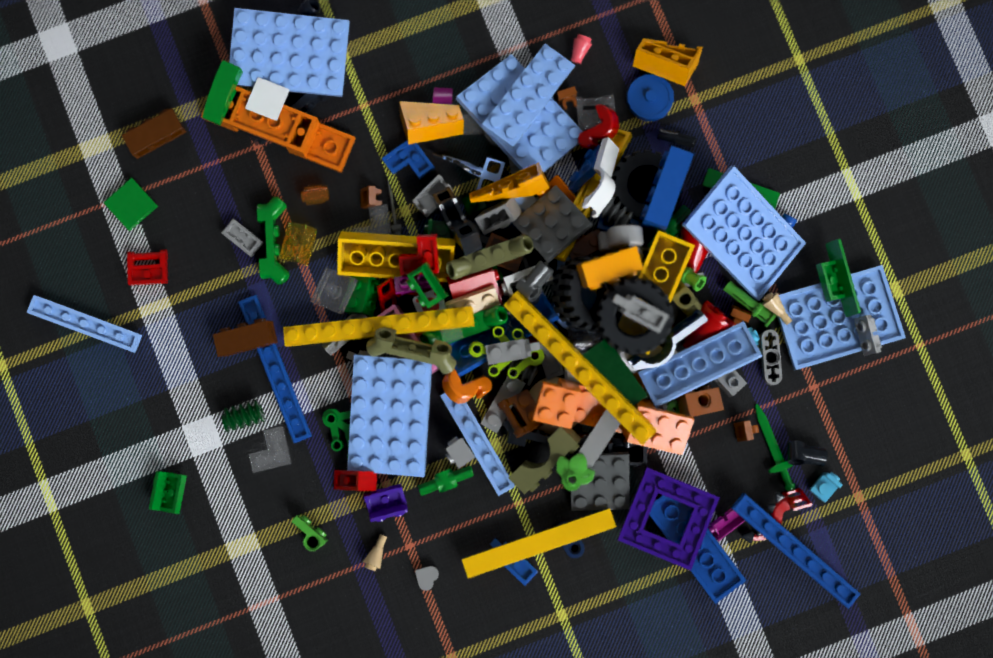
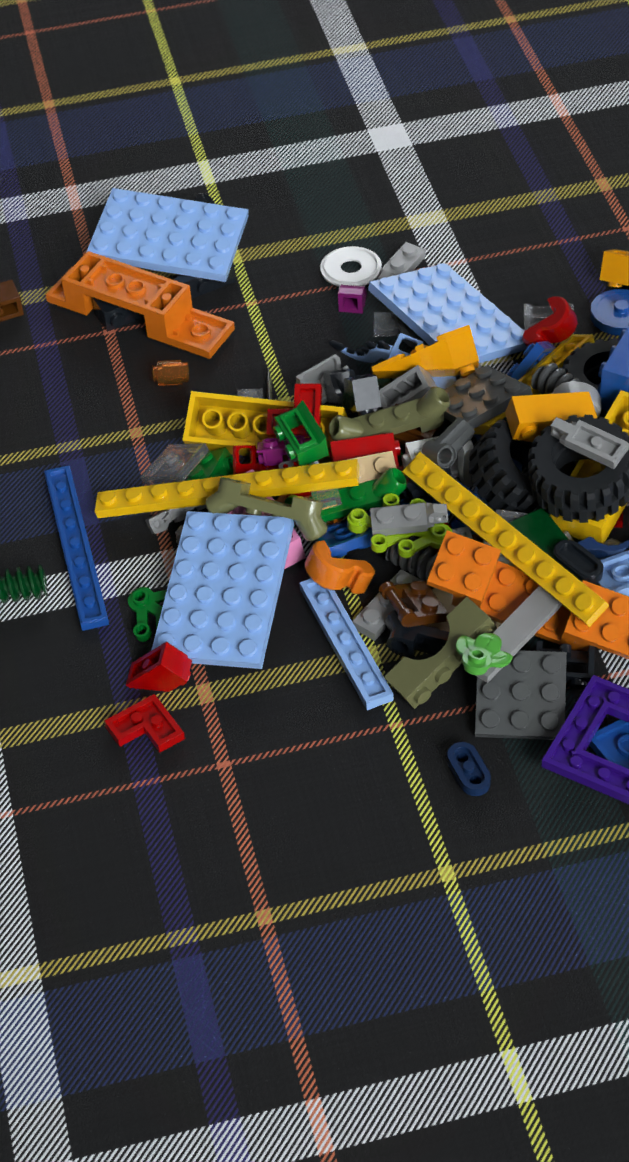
camera: 10 degrees right, 35 degrees down
(222, 92) = (78, 250): green slope -> none
(242, 237) = (66, 409): light grey plate -> none
(245, 337) = (43, 500): reddish brown brick -> none
(267, 99) = (131, 265): white sticker -> none
(270, 266) = (95, 433): green plate -> none
(276, 453) = (51, 636): clear plate -> none
(298, 243) = (138, 418): clear yellow bracket -> none
(304, 524) = (83, 734): bright green plate -> none
(353, 519) = (146, 718): none -> red plate
(368, 196) = (242, 378): dark orange tile -> none
(374, 558) = (166, 769): tan cone -> none
(386, 503) = (198, 699): dark purple bracket -> none
(411, 155) = (297, 343): blue plate -> none
(426, 577) = (242, 801): light grey tile -> none
(430, 46) = (332, 262): none -> white piece
(430, 121) = (334, 309): light orange wedge -> none
(445, 480) = (291, 681): green axle -> none
(459, 452) = (318, 641): light grey brick -> none
(476, 56) = (403, 261): none -> light grey hinge
(521, 569) = (379, 789): blue hinge -> none
(528, 96) = (460, 291): light blue plate -> none
(538, 543) = (419, 760): yellow tile -> none
(567, 95) = (511, 300): dark orange tile -> none
(580, 48) = (534, 260): coral cone -> none
(604, 167) = (550, 351): white piece -> none
(634, 387) = (578, 561): none -> black tile

